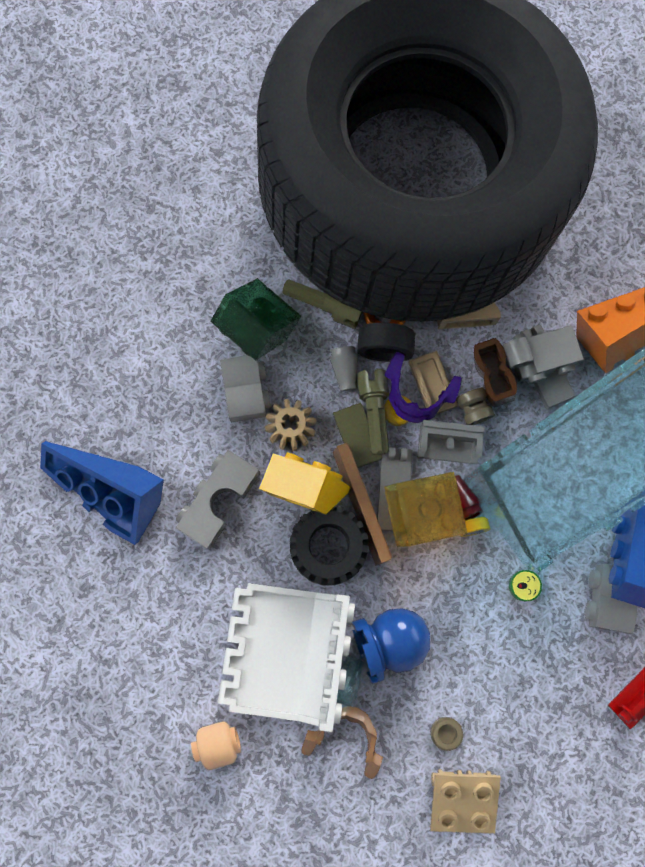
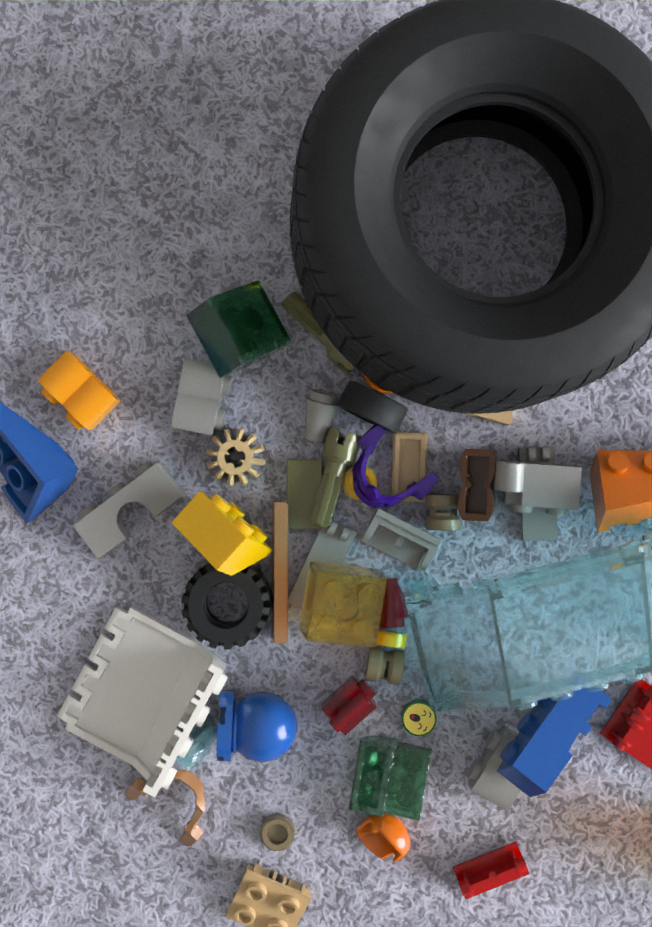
camera: 25 degrees right, 10 degrees up
(142, 419) = (78, 391): none -> light orange brick
(216, 745) = (40, 758): light nougat head -> none
(464, 594) = (349, 704): none -> dark red brick
(479, 550) = (377, 663): none -> dark tan wheel
(524, 644) = (390, 777): none -> clear green brick
(539, 697) = (384, 836): none -> orange hair

